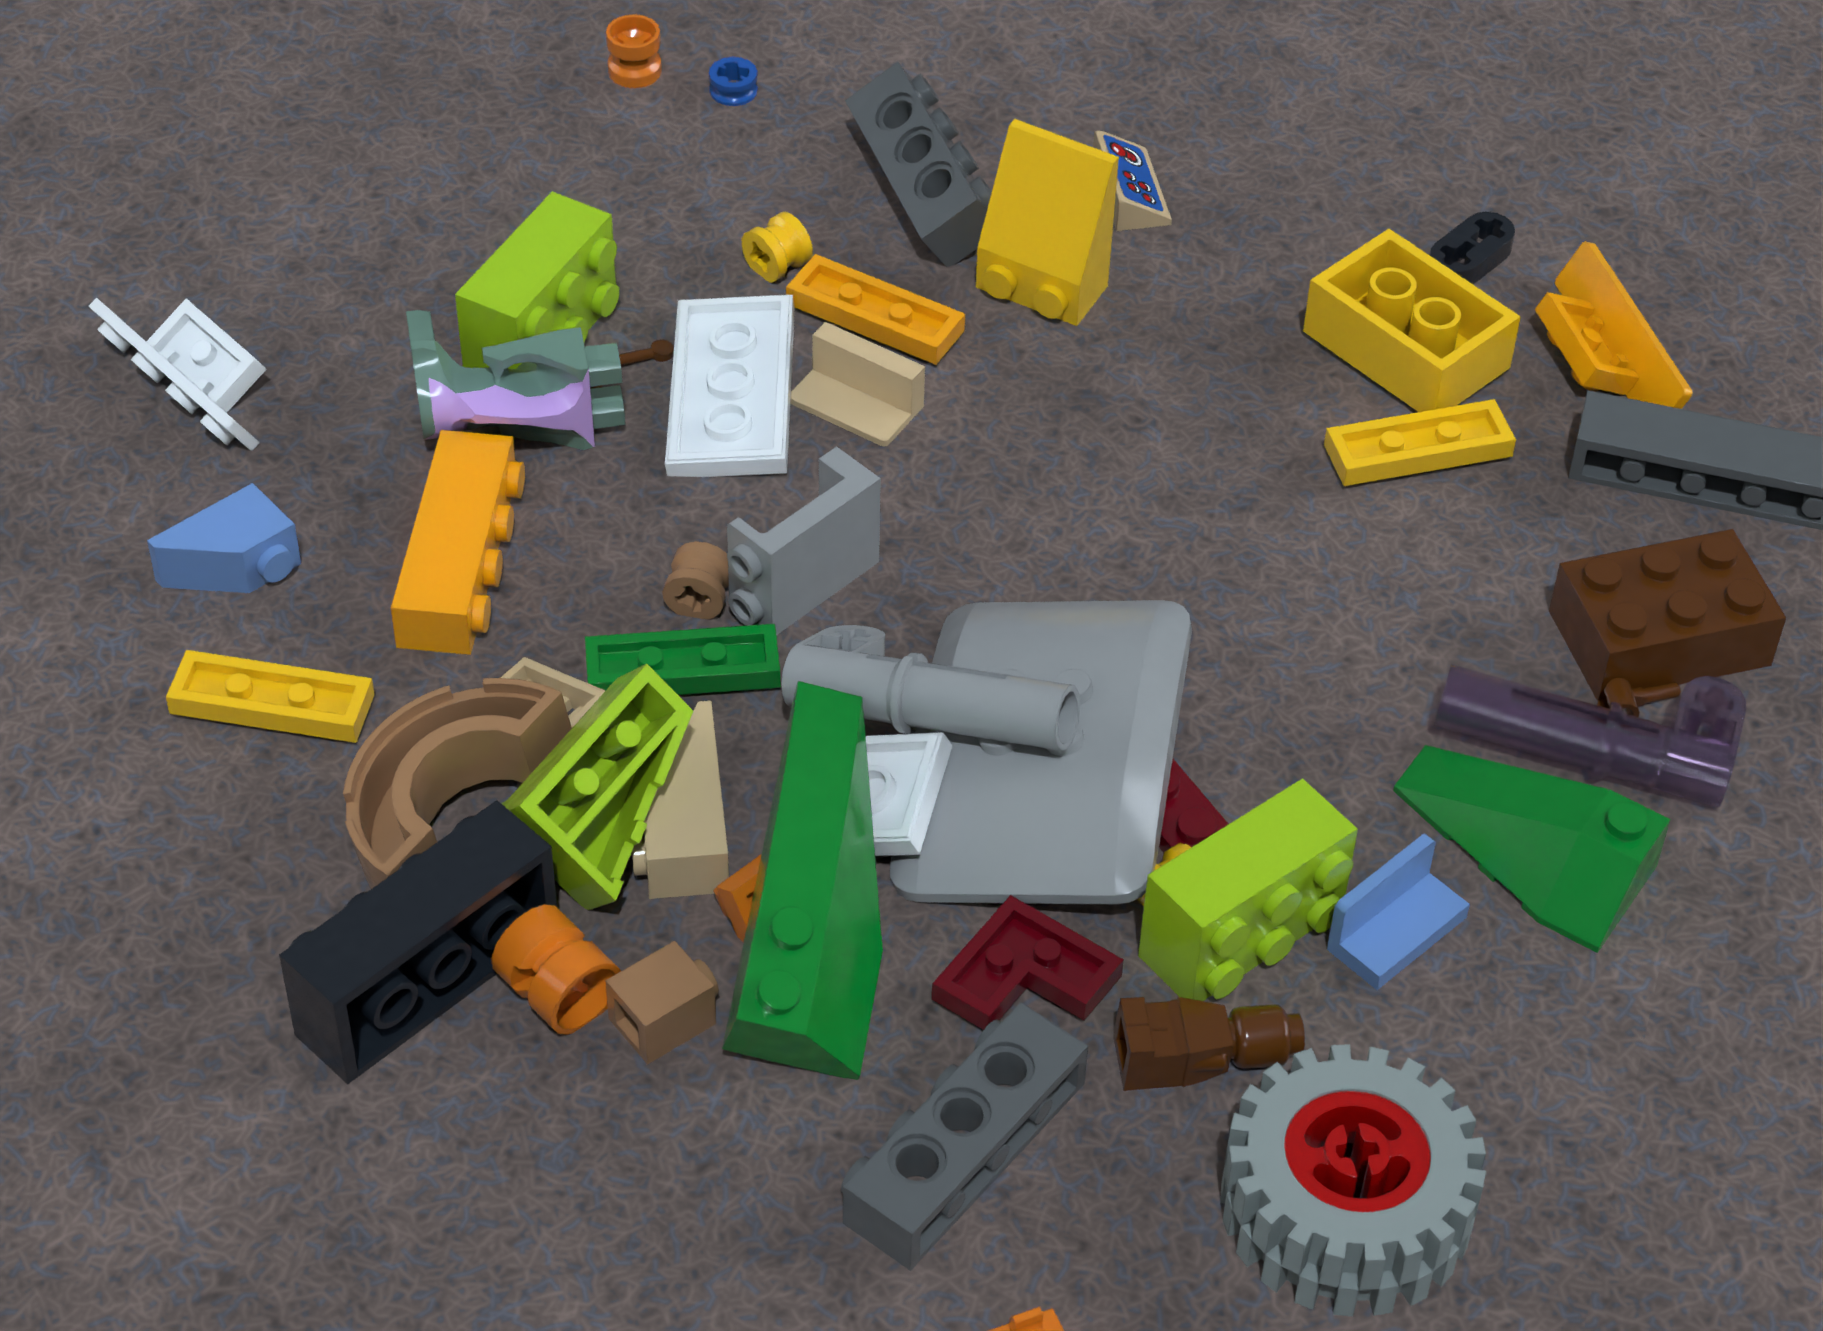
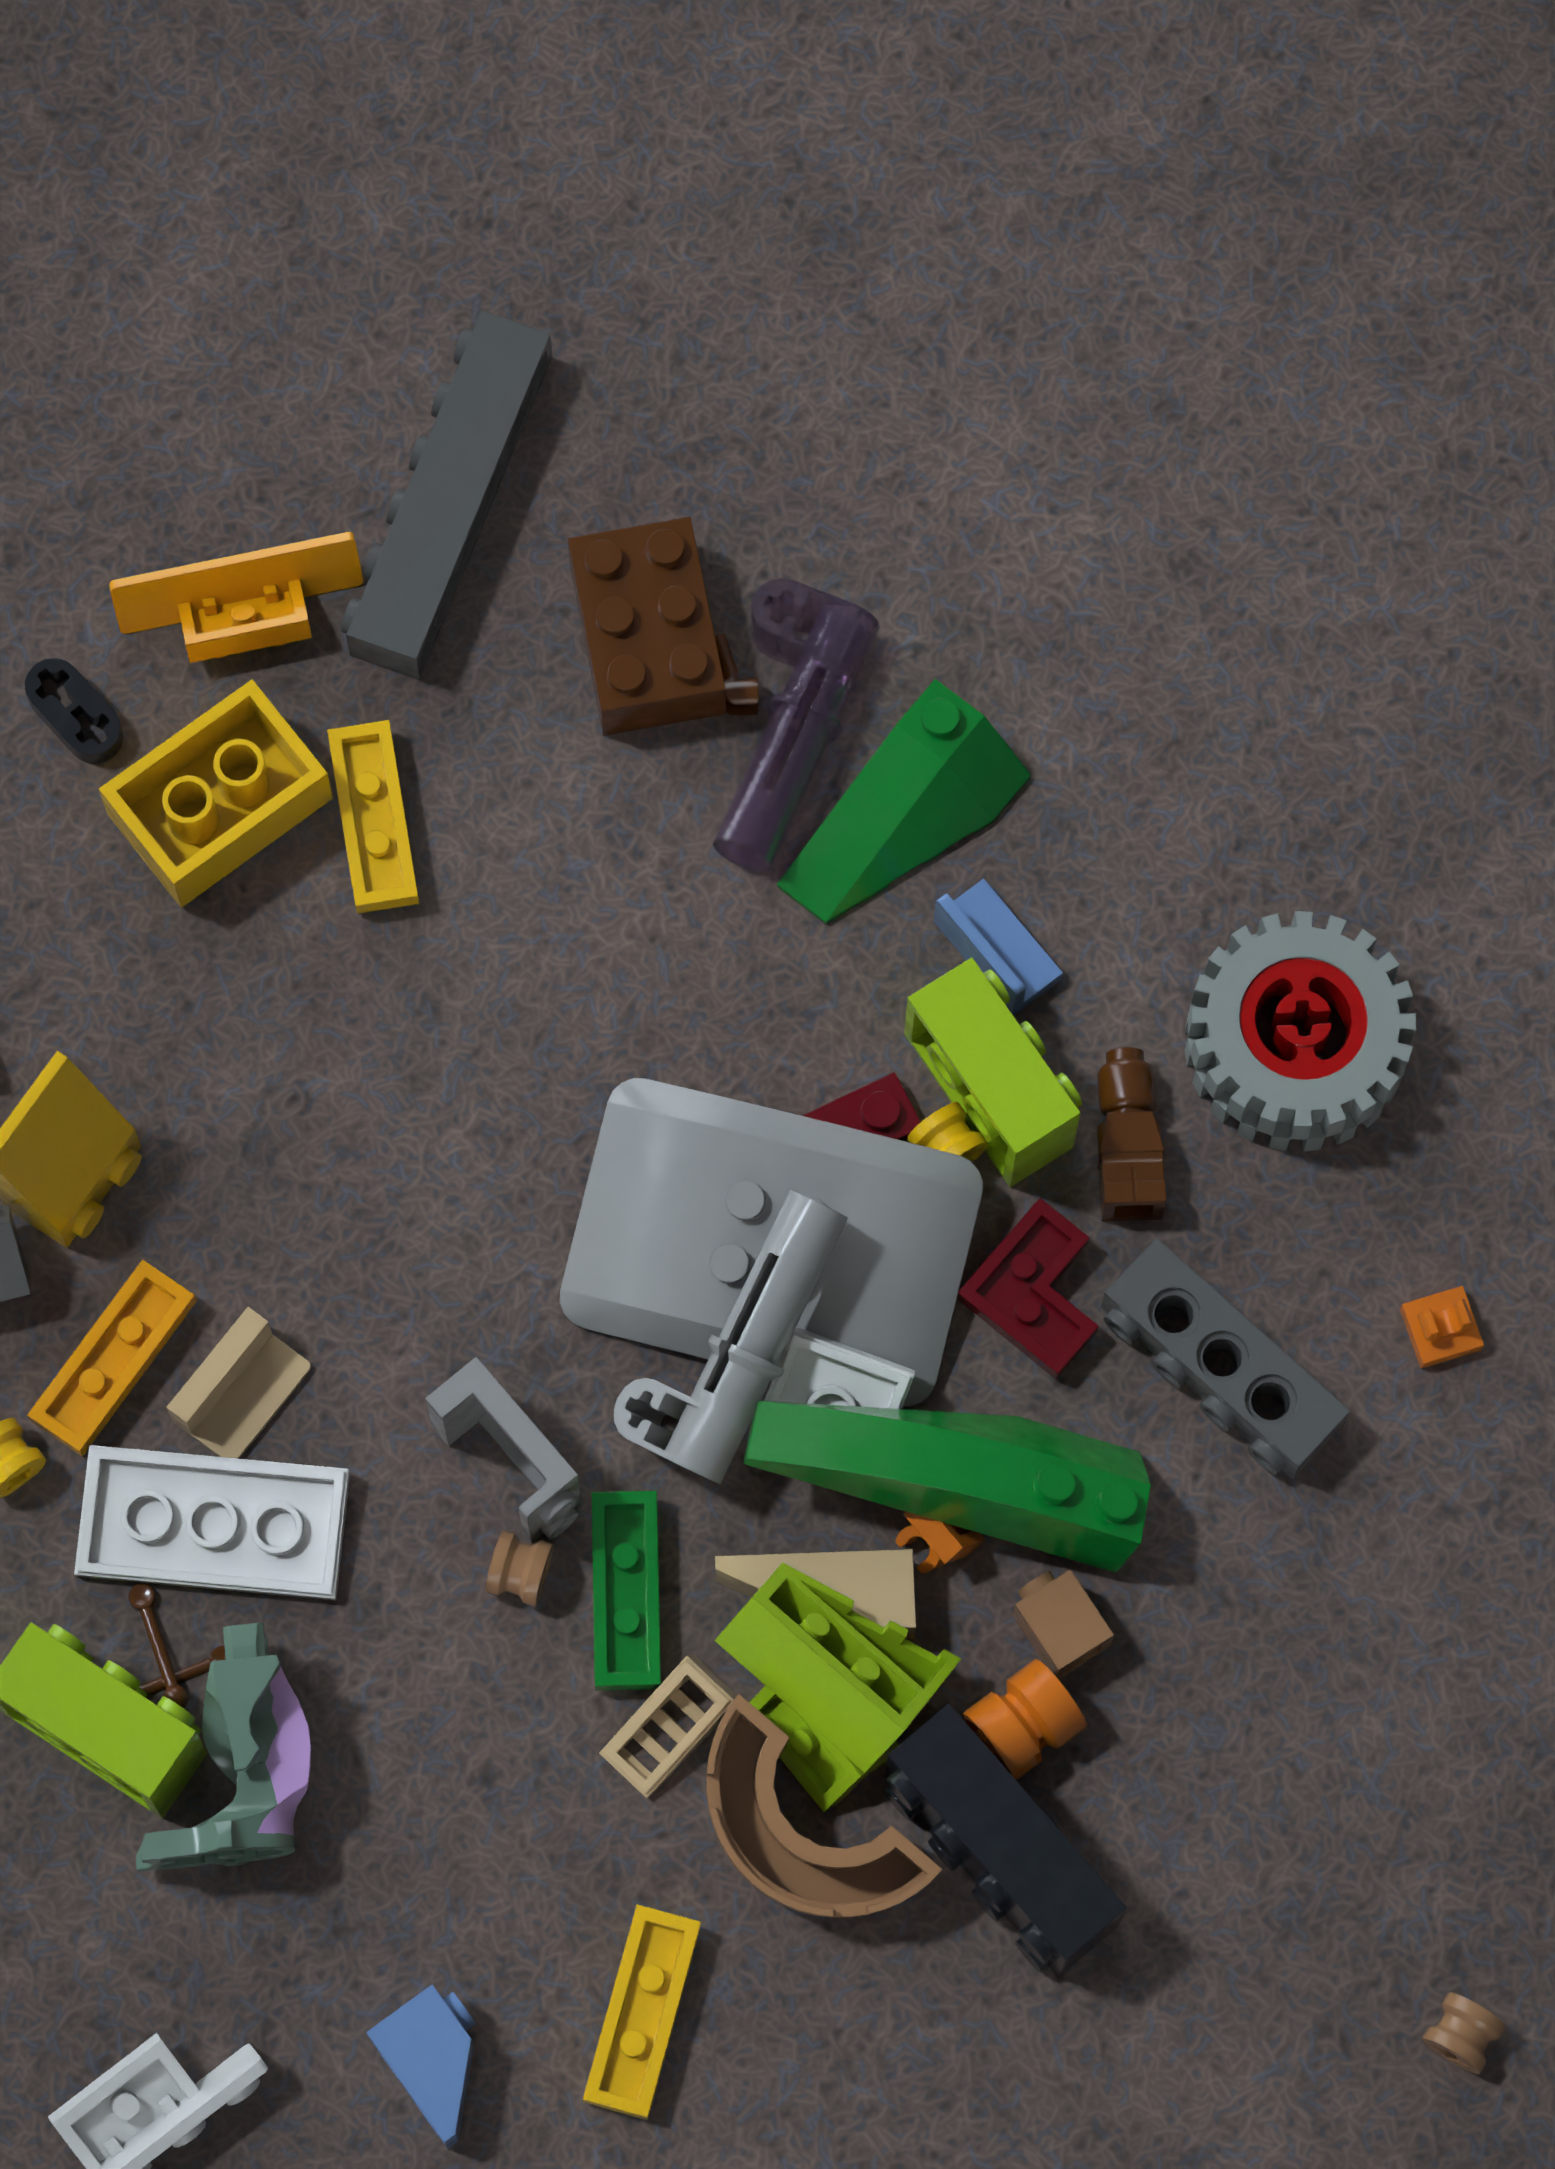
camera: 85 degrees left, 25 degrees up
(456, 543) = (442, 1817): light orange brick -> none

